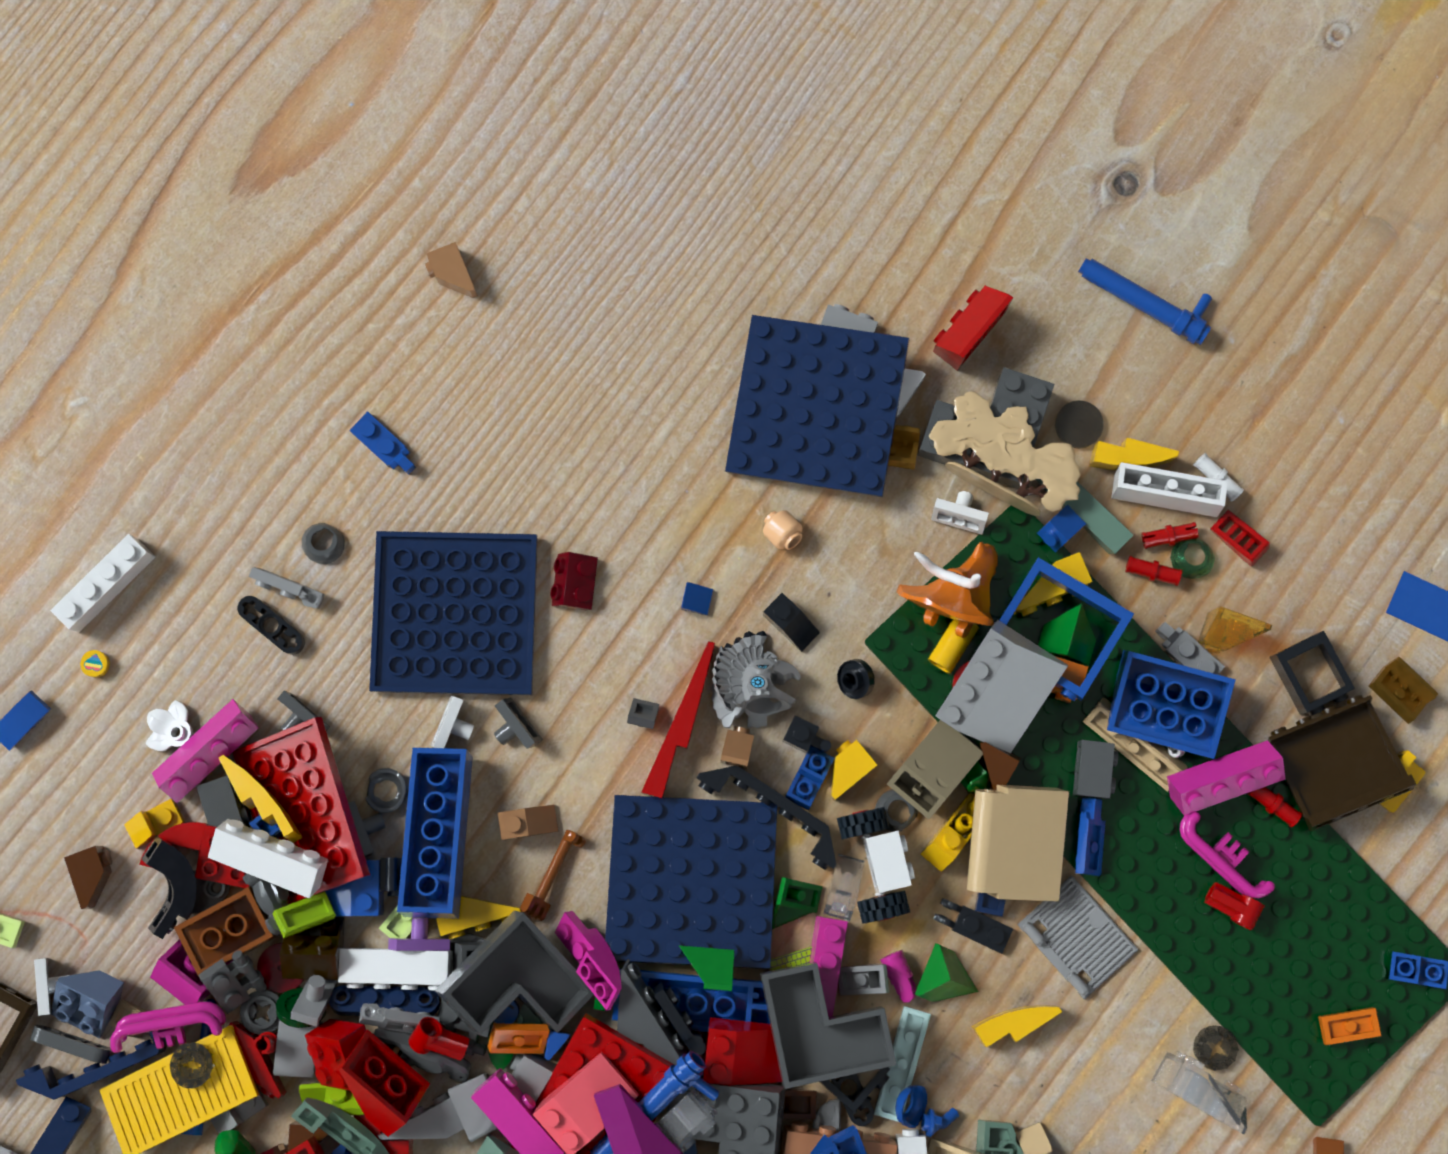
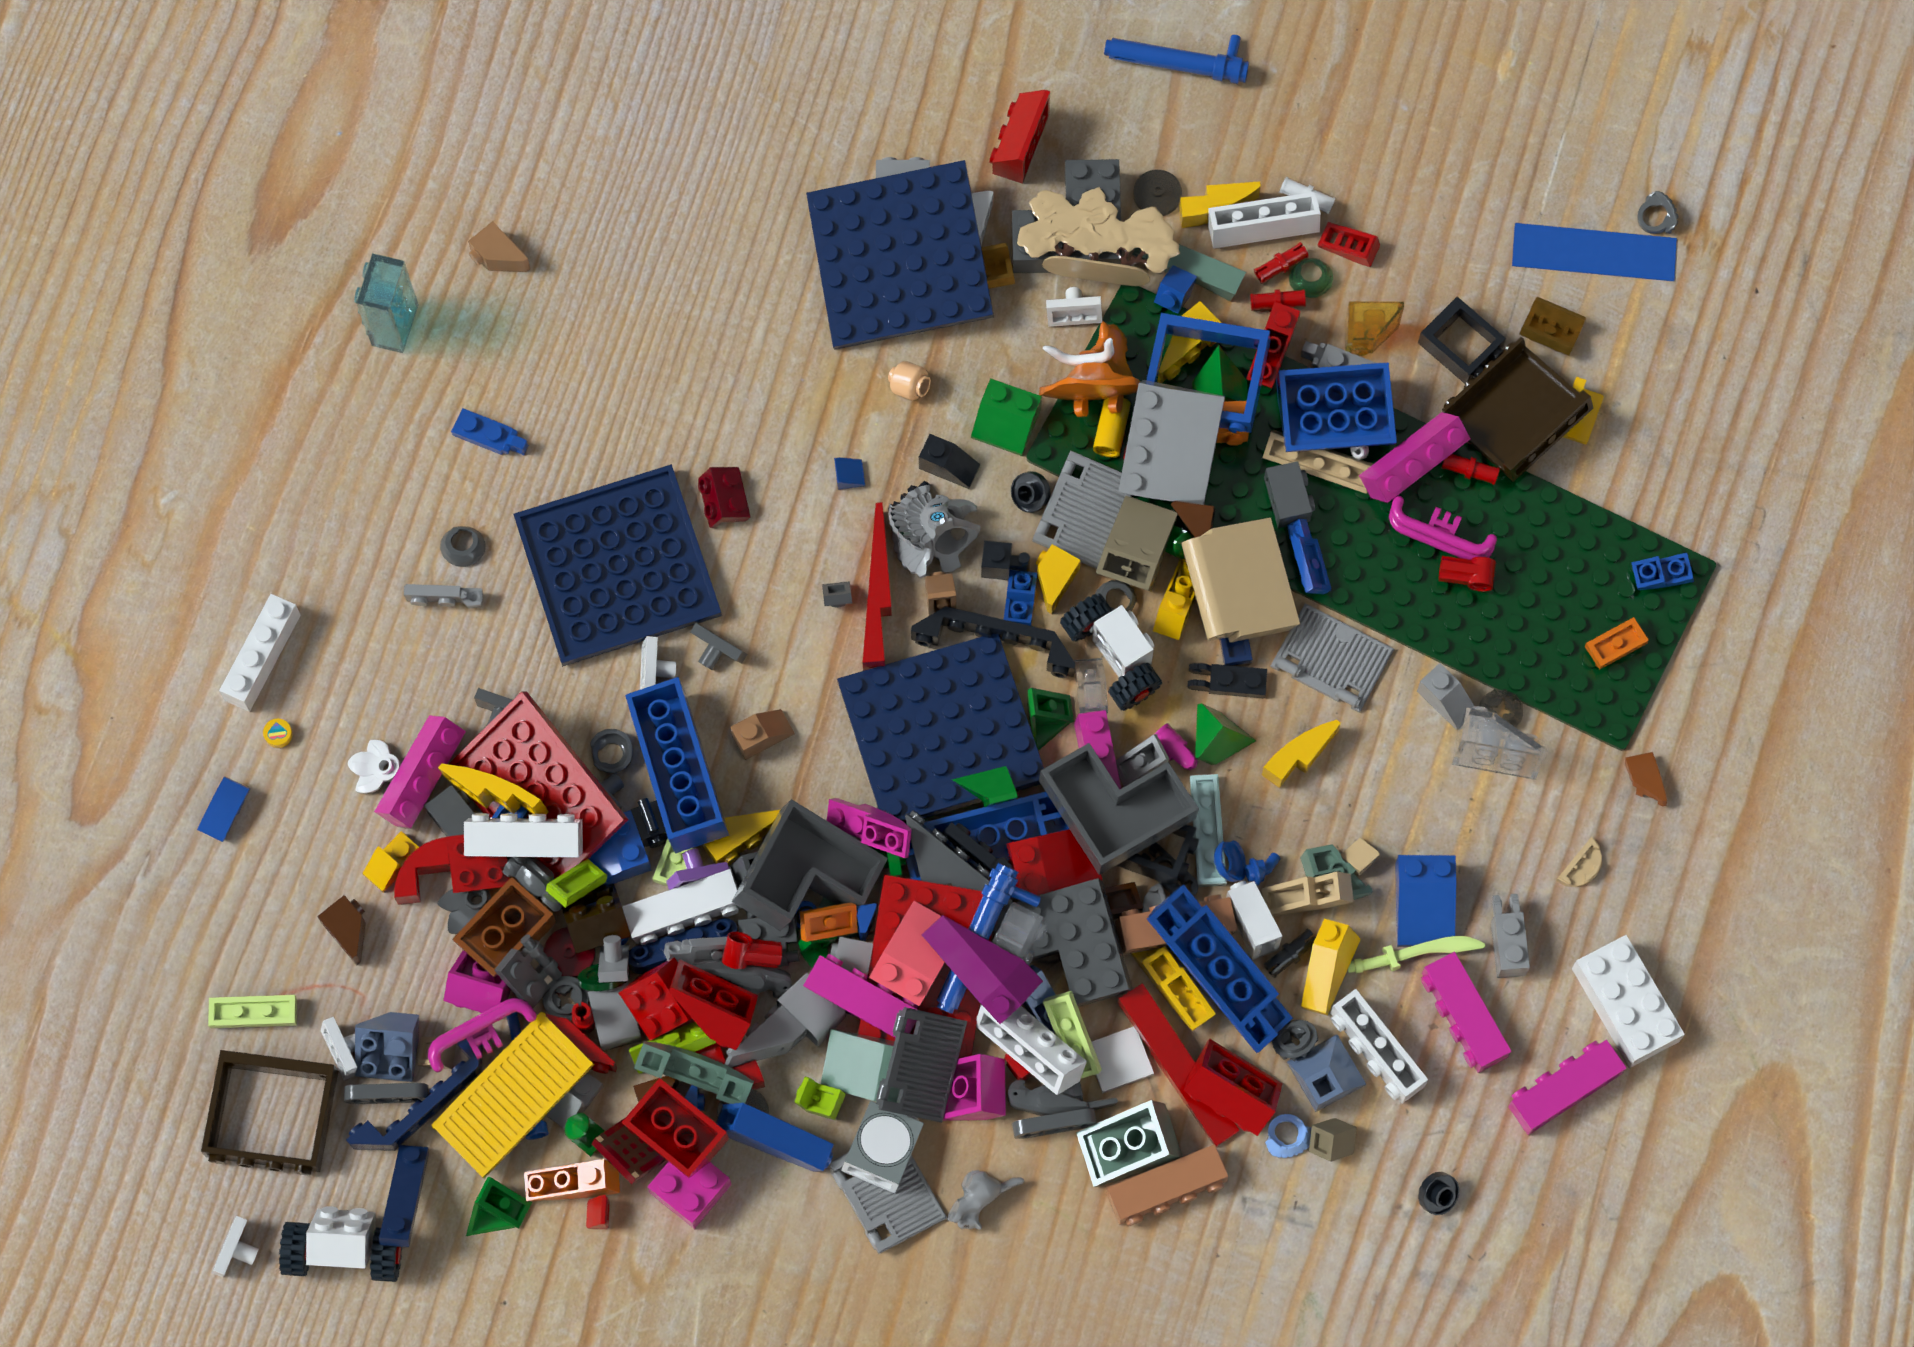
camera: 20 degrees left, 10 degrees down
(180, 881) = (441, 897): black arch -> none
(182, 1074) = (506, 1054): clear smoke gear -> none
(261, 607) = (418, 638): black beam -> none
(325, 292) = (386, 302): none -> clear light blue brick
(535, 905) = (809, 733): dark orange hinge -> none
(859, 597) = (1006, 417): none -> green slope
(897, 714) = (1082, 509): none -> light grey window
(1144, 604) = (1281, 327): none -> red slope
(1170, 1016) = (1445, 695): none -> light grey slope

